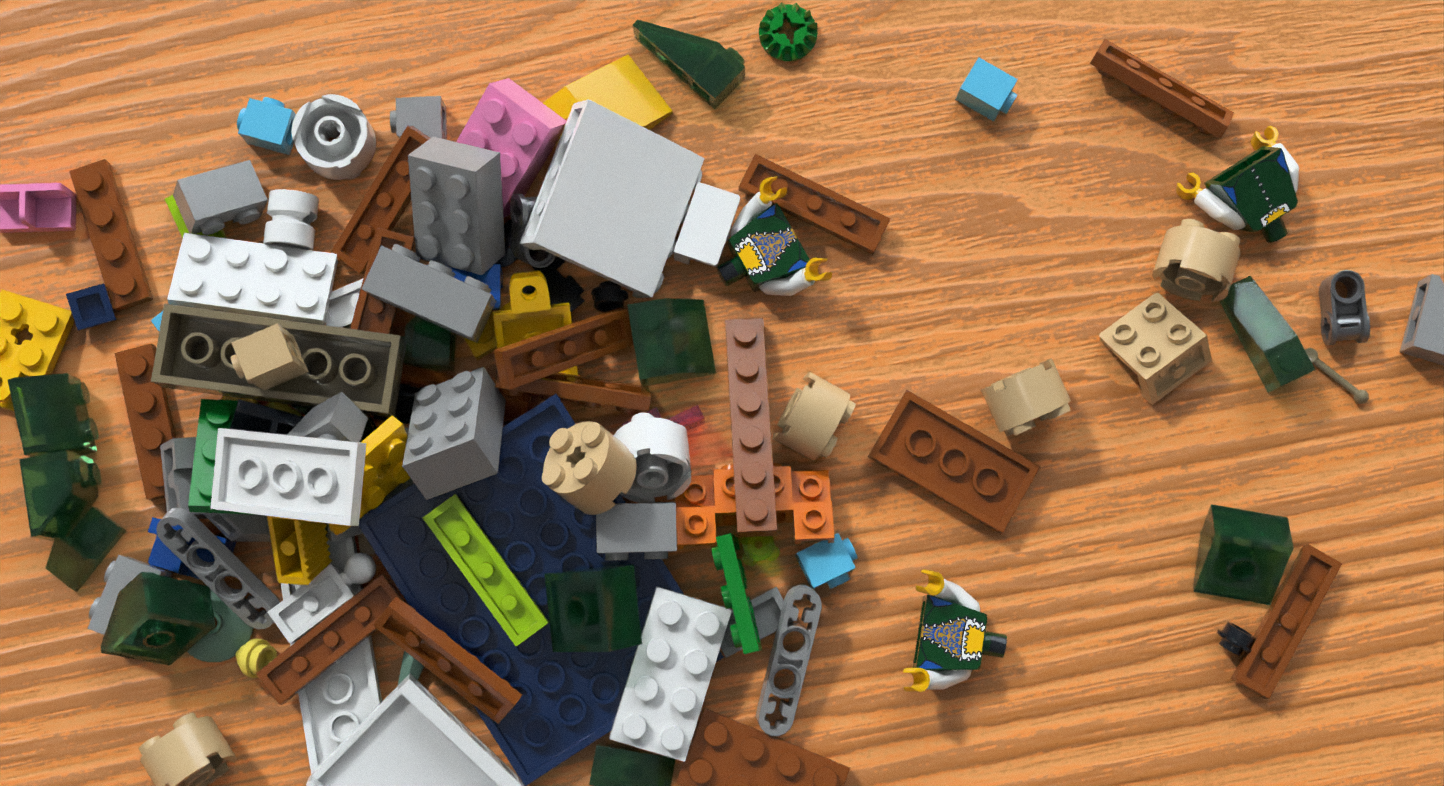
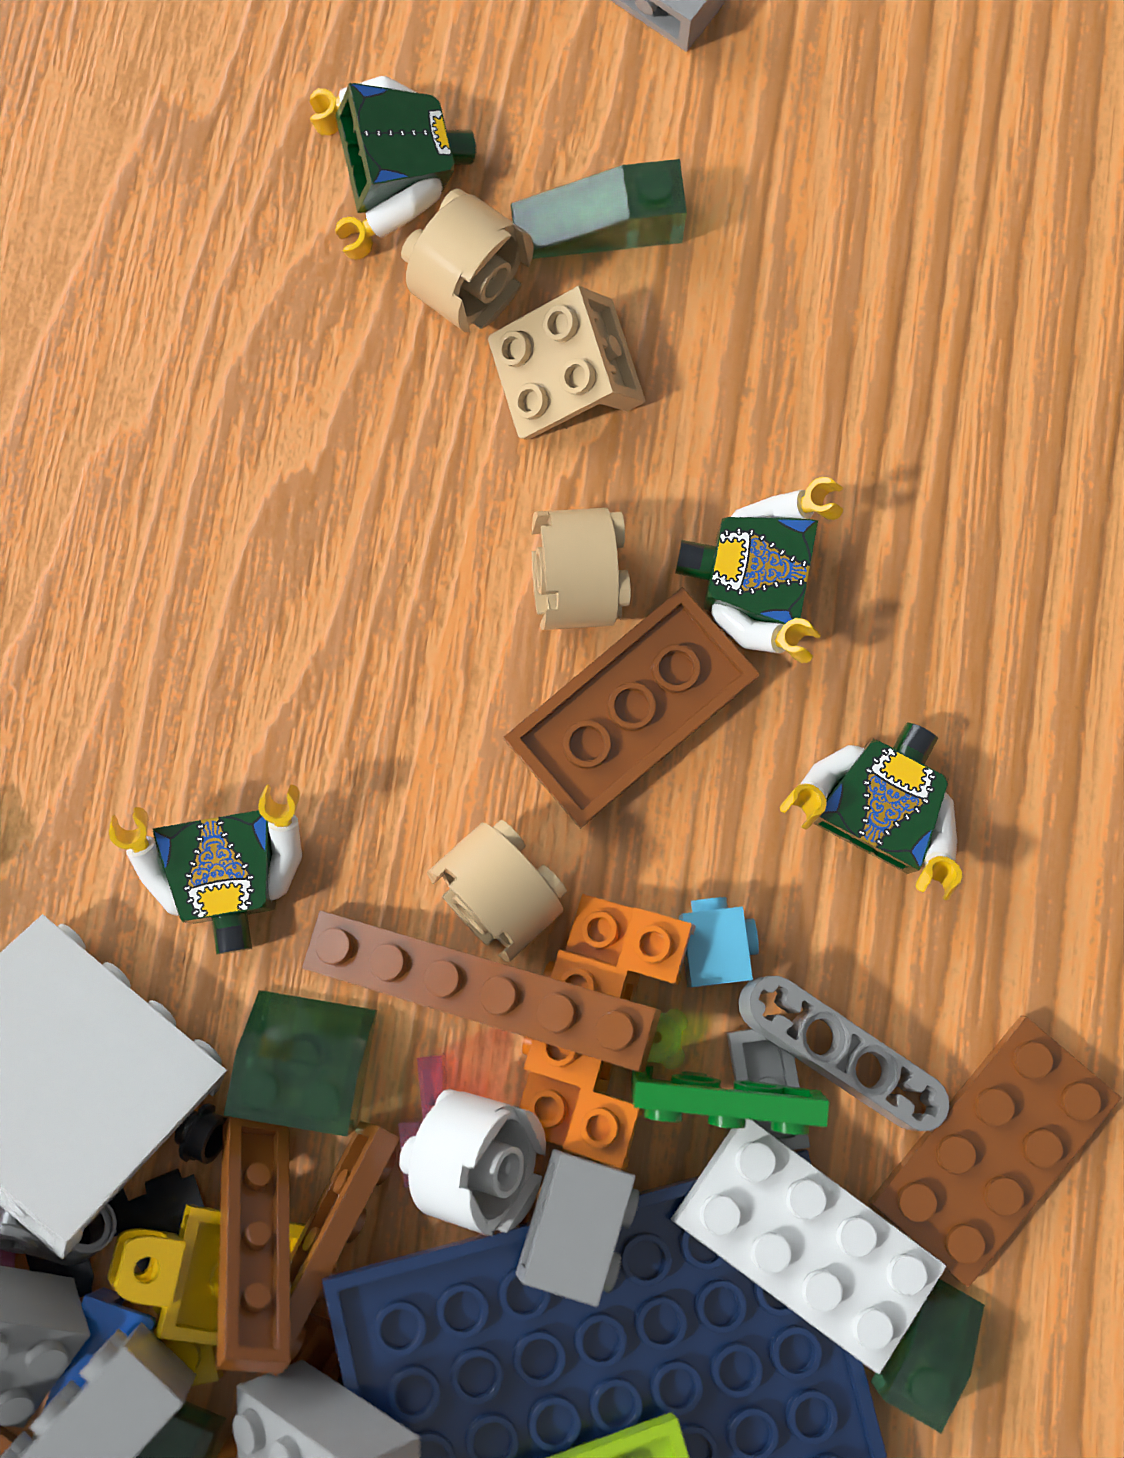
camera: 70 degrees left, 0 degrees up
(588, 467) = (459, 1278): tan brick -> none
(593, 609) = (678, 1335): clear green slope -> none
(706, 225) = (147, 947): white panel -> none
(818, 205) = (179, 769): dark orange plate -> none
(987, 90) = (105, 461): medium azure brick -> none
(1070, 512) = (763, 568): none -> torso
(1153, 83) = (216, 209): dark orange plate -> none
(1235, 639) = (1011, 409): black plate -> none
(1242, 554) = (898, 355): clear green slope -> none
(1286, 621) = (1009, 333): dark orange plate -> none
(1344, 312) = (606, 96): flat silver piece -> none
(1360, 396) = (730, 123): dark tan hinge -> none

